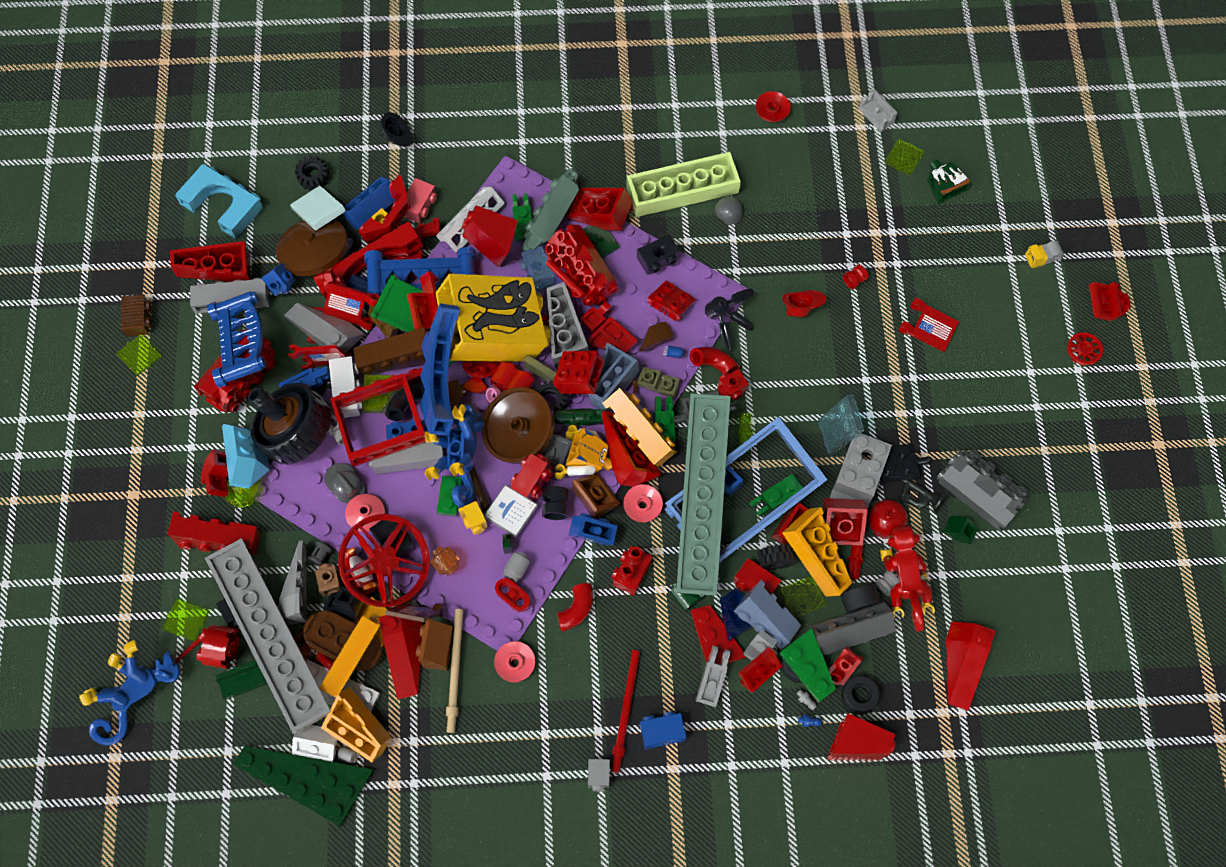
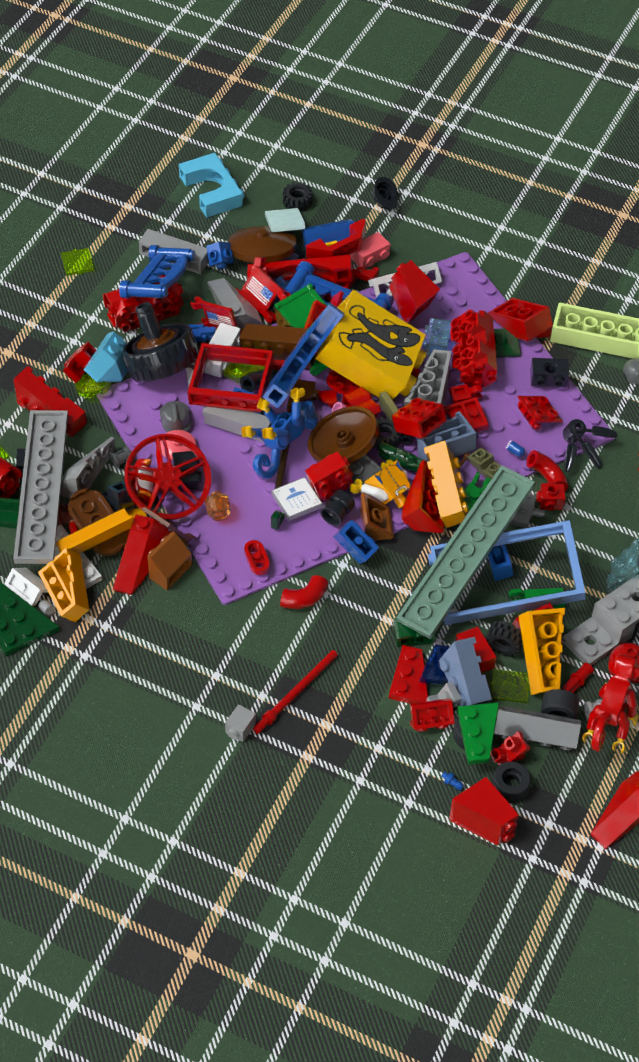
camera: 30 degrees right, 15 degrees down
(135, 315) = (93, 232): reddish brown brick -> none
(213, 262) = (176, 220): red wedge -> none
(331, 585) = (114, 474): medium nougat brick -> none
(445, 502) = (246, 470): green plate -> none
(452, 709) = (151, 618): tan bar -> none
(473, 518) = (262, 486): yellow brick -> none
(510, 652) = (223, 601): coral dish -> none
(516, 566) = (273, 538): light grey brick -> none
(522, 214) = (449, 299): green hinge -> none
(551, 211) = (480, 298): sand green hinge -> none
(565, 278) = (453, 347): red bar -> none
(632, 570) = (371, 589): red brick -> none
(643, 494) = (413, 540): coral dish -> none
(655, 335) = (508, 429): reddish brown slope -> none
(662, 730) = (315, 718): blue brick -> none
(713, 678) = (386, 702): light grey hinge -> none
(744, 431) = (537, 543): clear neon green pin -> none
(804, 697) = (460, 760): light grey piece -> none
(845, 520) = (583, 639): red slope -> none

